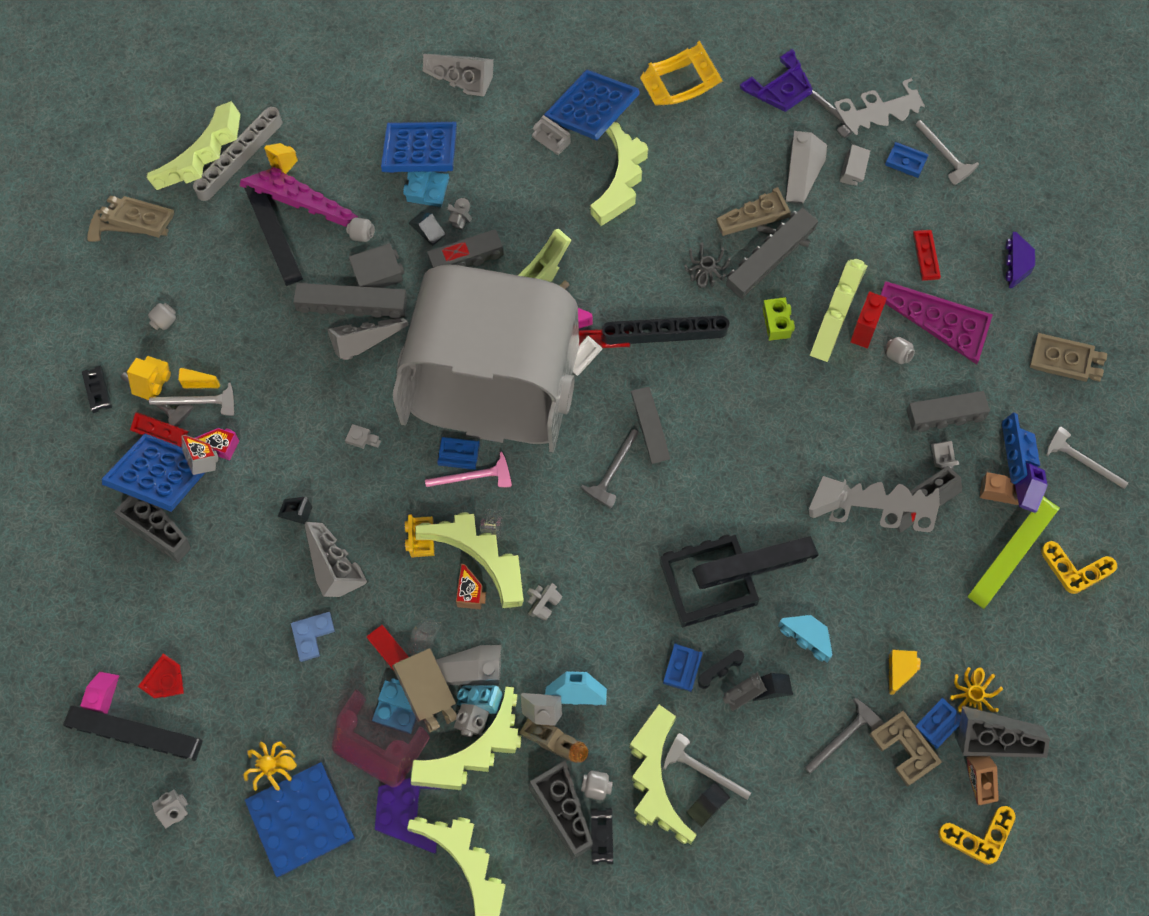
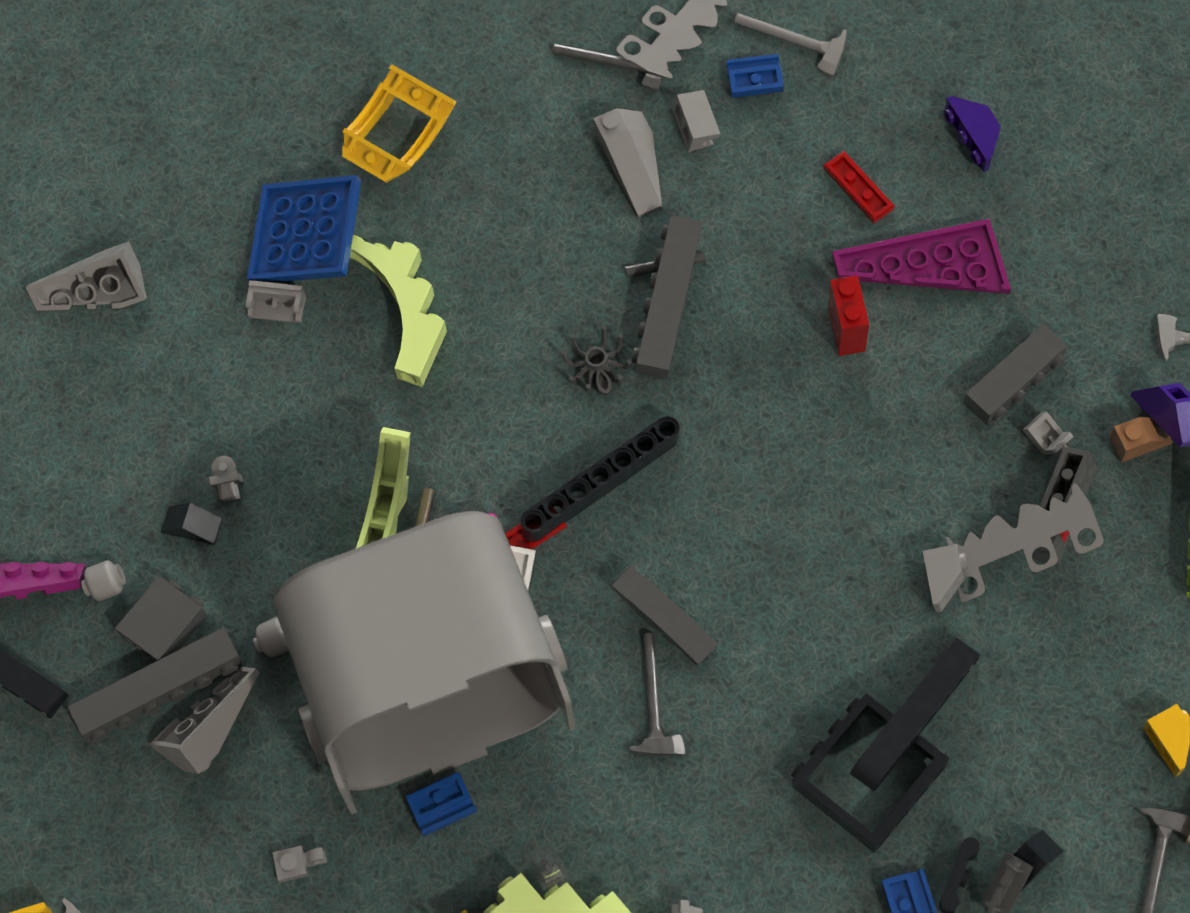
camera: 30 degrees left, 0 degrees up
(419, 147) = (109, 420): blue plate -> none
(426, 188) = (151, 468): dark azure plate -> none
(468, 251) = (269, 529): dark grey brick -> none
(500, 470) = (509, 793): bright pink piece -> none
(753, 214) = (615, 251): dark tan wing -> none
(775, 319) = (726, 382): lime brick -> none
(786, 89) = (543, 65): dark purple wing -> none
(809, 634) = (1036, 763): medium azure slope -> none
(838, 309) = (802, 317): yellowish green arch -> none
(900, 350) = (908, 331): light grey head -> none
(1020, 448) = (1131, 371): blue bracket -> none
(1067, 358) = (1110, 222): dark tan tile -> none

